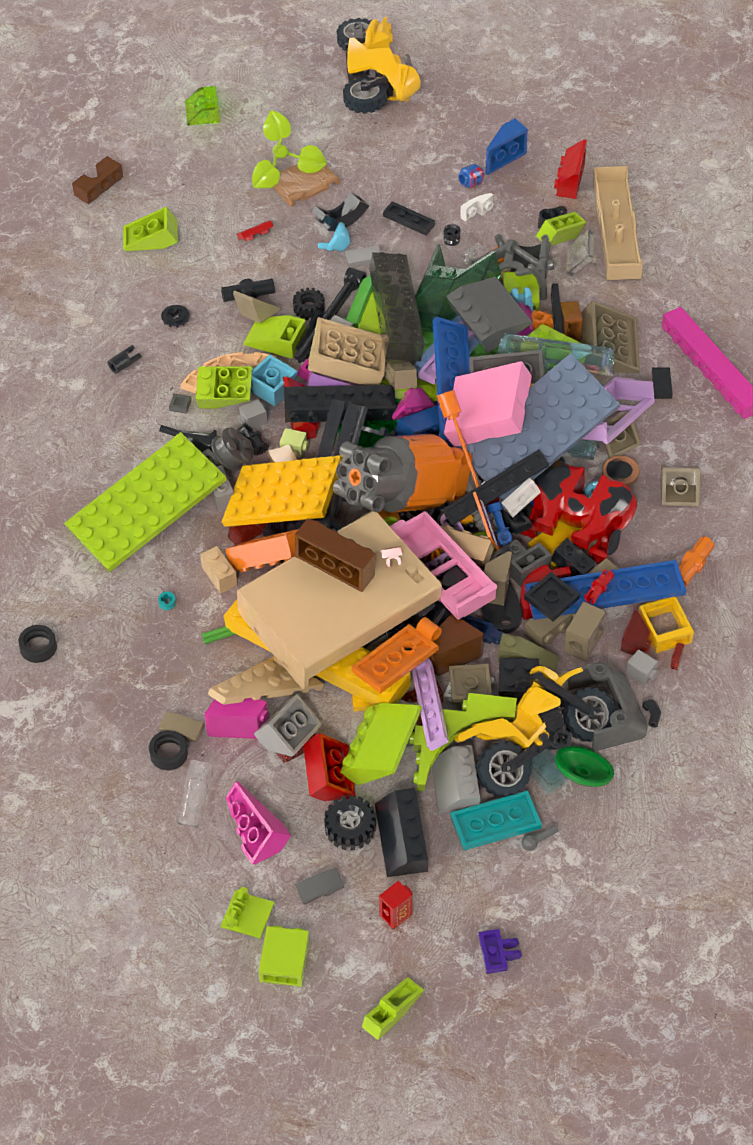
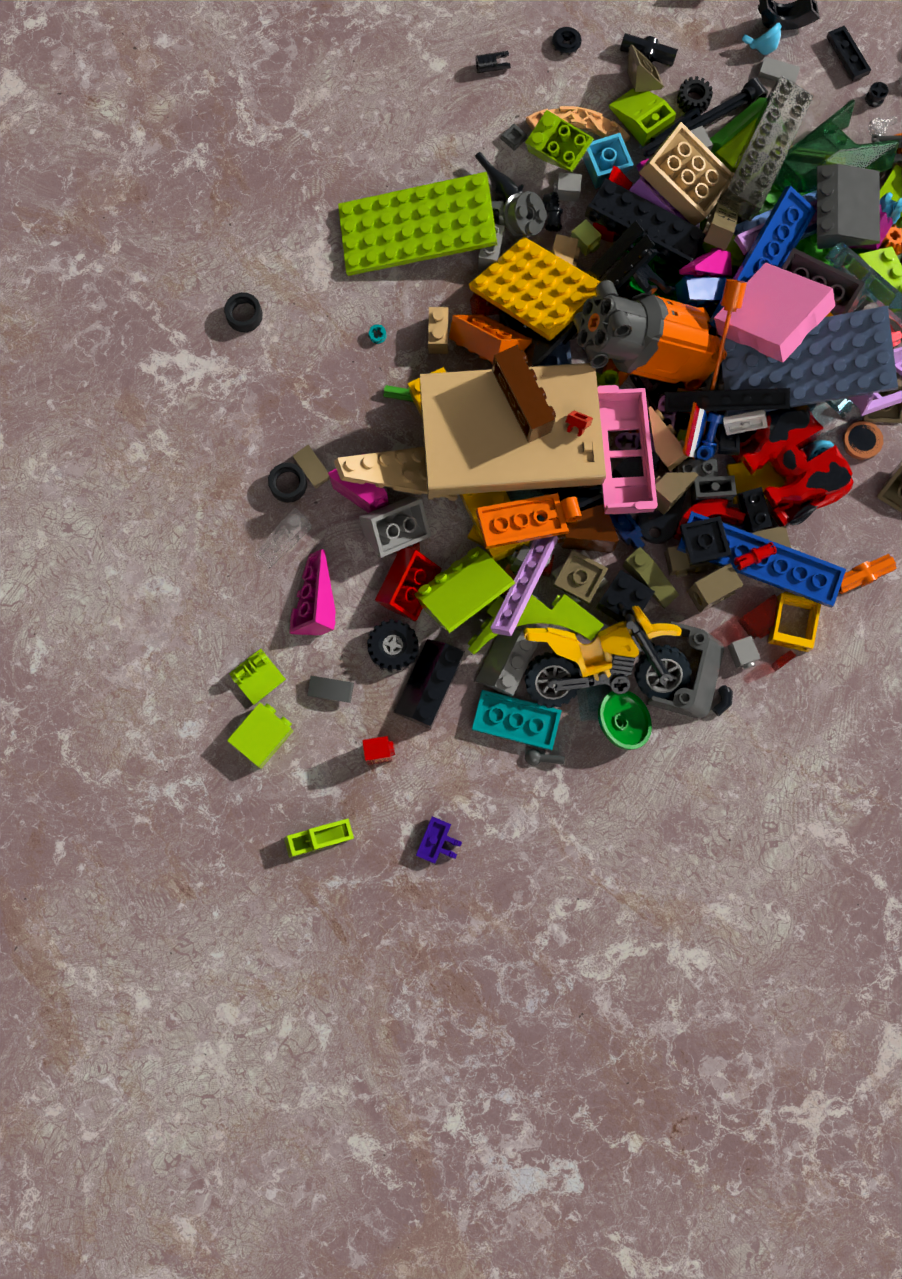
camera: 30 degrees right, 25 degrees up
(410, 692) = (519, 557): none -> dark grey plate

